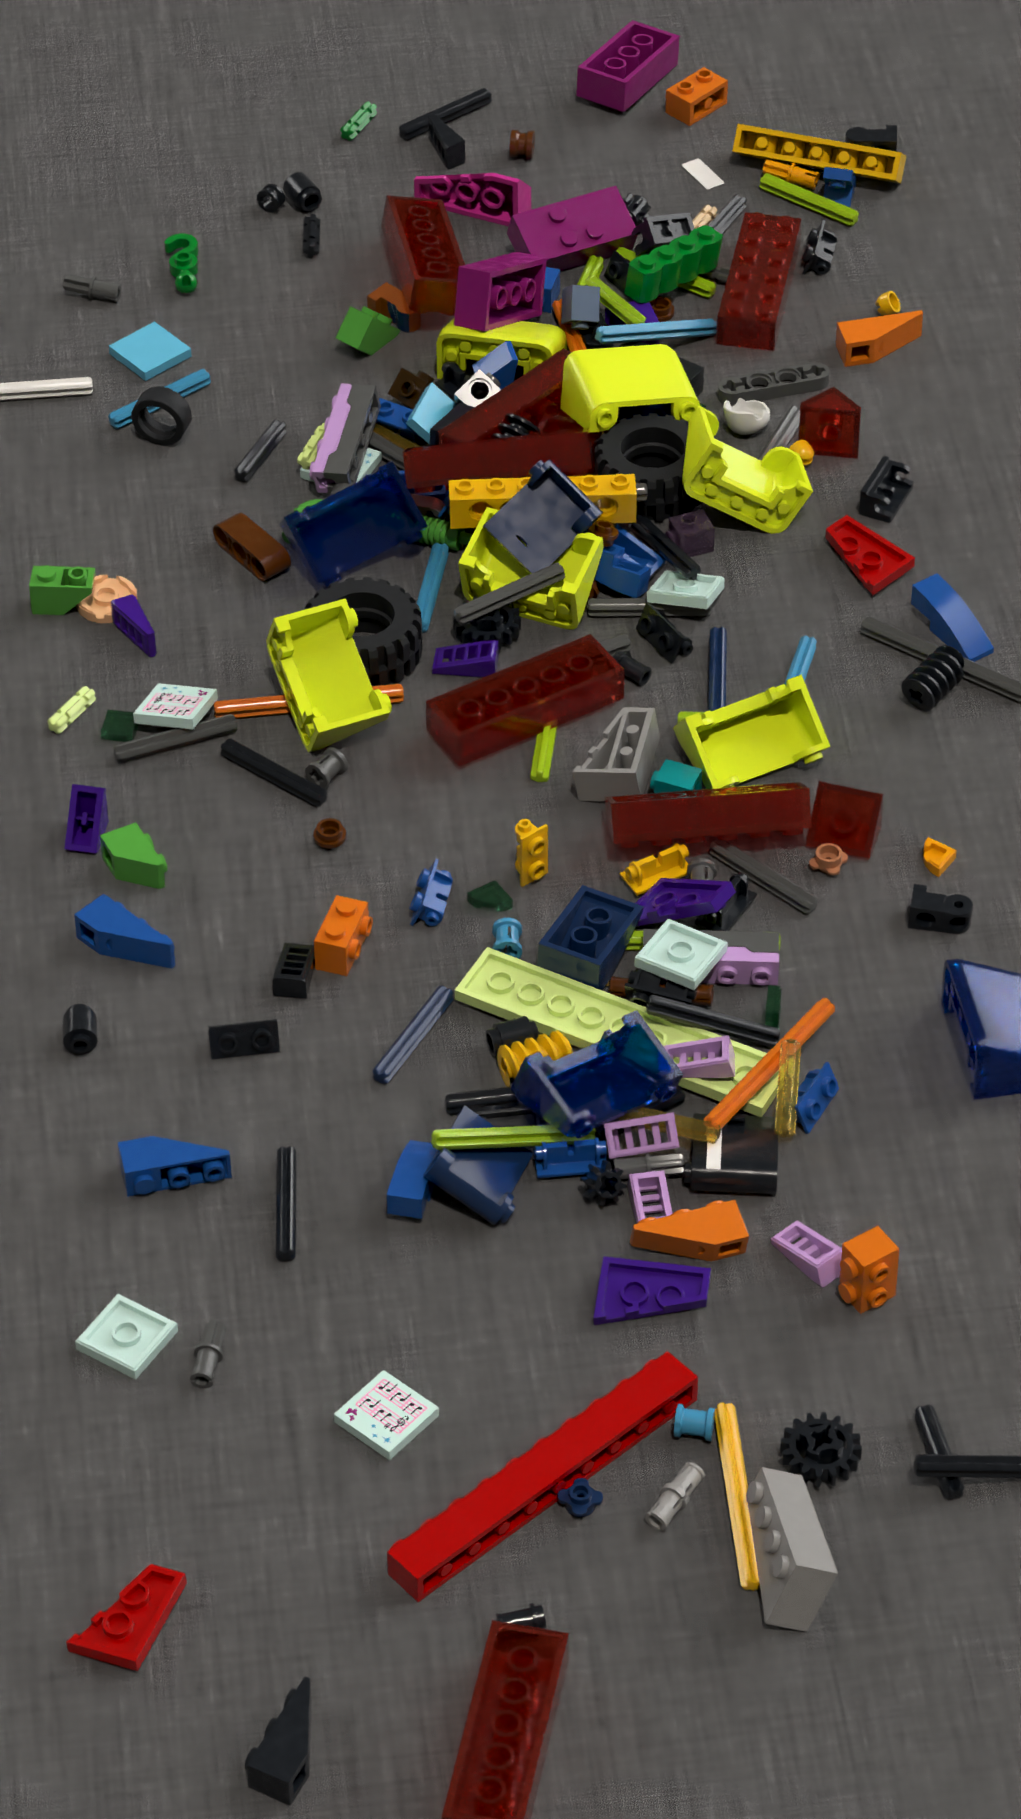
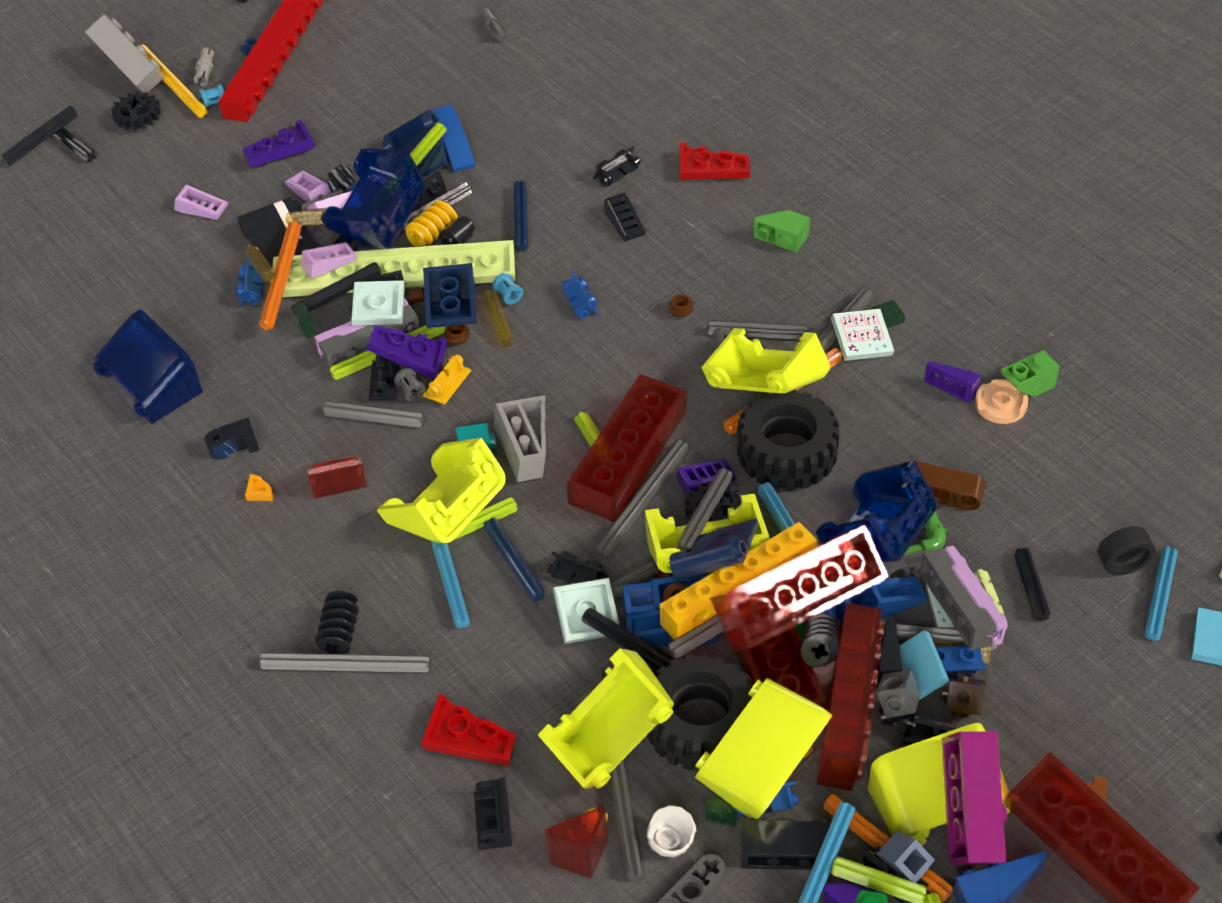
camera: 150 degrees right, 5 degrees up
(71, 710) = (930, 309): yellowish green axle -> none
(80, 1029) = (711, 128): black brick -> none
(86, 818) = (836, 239): dark purple slope -> none
(120, 934) = (740, 184): blue slope -> none
(126, 1336) = (542, 18): light aqua tile -> none
(128, 984) = (711, 165): none -> red wing
(165, 1164) = (594, 86): blue slope -> none
(286, 1204) = (515, 103): black axle -> none
(342, 935) = (609, 239): orange brick -> none
(366, 330) = (1073, 745): bright green slope -> none
(386, 1414) = (379, 41): light aqua tile -> none
(490, 896) = (543, 316): clear green tile -> none
(500, 363) = (908, 731): slope -> none
(531, 851) = (531, 332): yellow hinge -> none
(544, 916) = (498, 318): none -> clear yellow axle
(632, 668) = (580, 527): black pin -> none
(699, 1233) = (270, 173): orange slope -> none
(708, 813) = (429, 412): clear red brick -> none
(828, 859) = (334, 445): nougat plate -> none
(868, 1270) = (151, 188): orange brick -> none
(950, 618) = (357, 696): blue slope -> none

